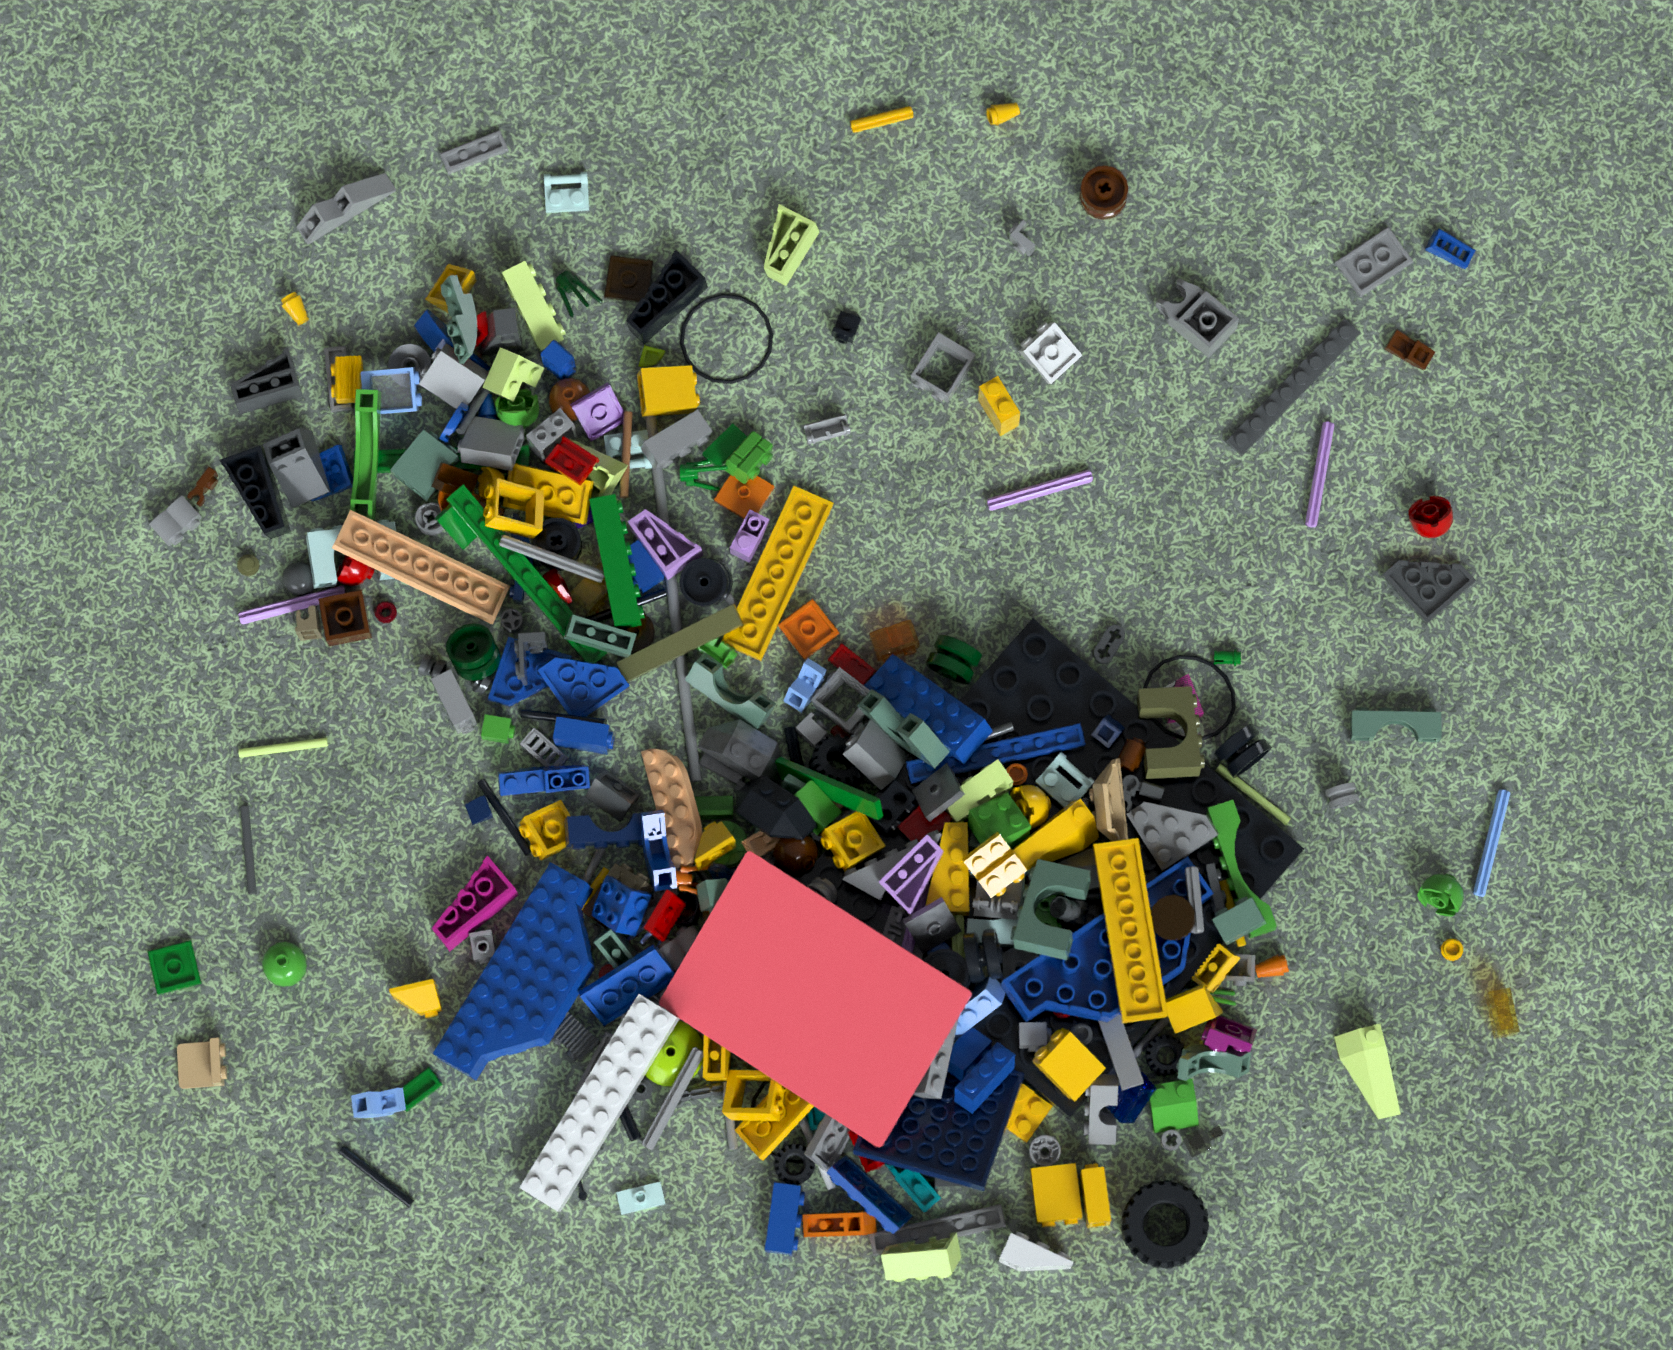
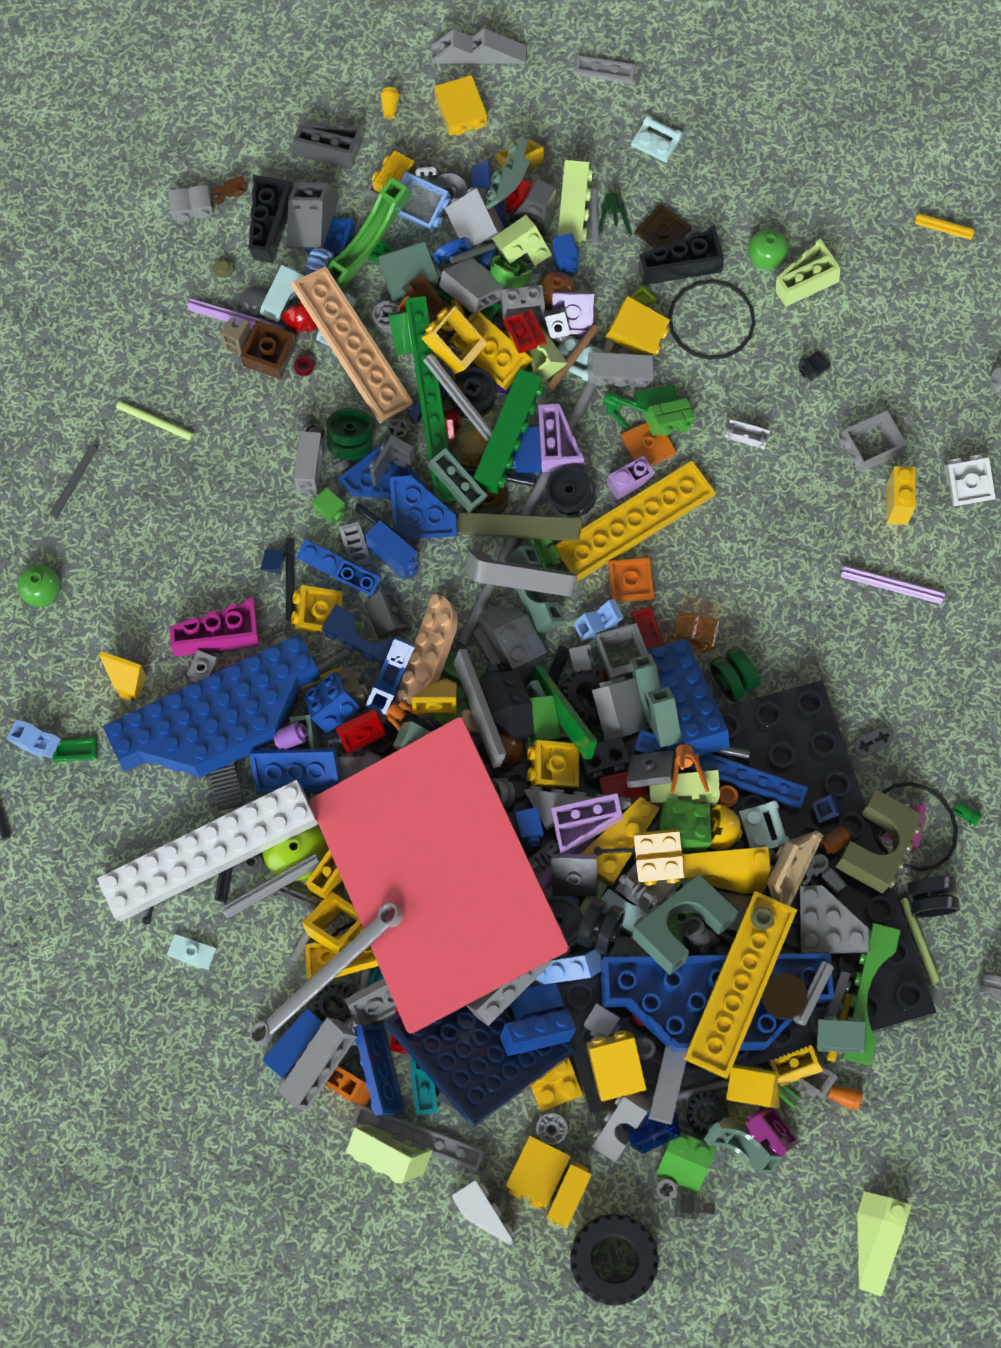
camera: 30 degrees right, 5 degrees down
(336, 507) = (318, 259): none -> light blue gear
(364, 272) = (460, 105): none -> yellow brick
(376, 358) = (425, 169): none -> light grey tile
(558, 305) = (594, 217): none -> light grey bar
(593, 432) = (555, 317): none -> brick
(606, 958) = (290, 736): none -> medium lavender brick
(686, 702) = (489, 571): none -> light grey beam
(736, 240) = (768, 249): none -> bright green cylinder
(756, 831) = (479, 708): none -> light grey tile
(774, 1143) = (326, 974): none -> light grey piece
(814, 1222) = (317, 1063): none -> light grey brick
(867, 909) = (529, 828): none -> blue brick
(940, 892) = (598, 850): none -> black hinge
(963, 766) = (684, 758): none -> orange plant
(1114, 864) = (762, 918): none -> olive plate

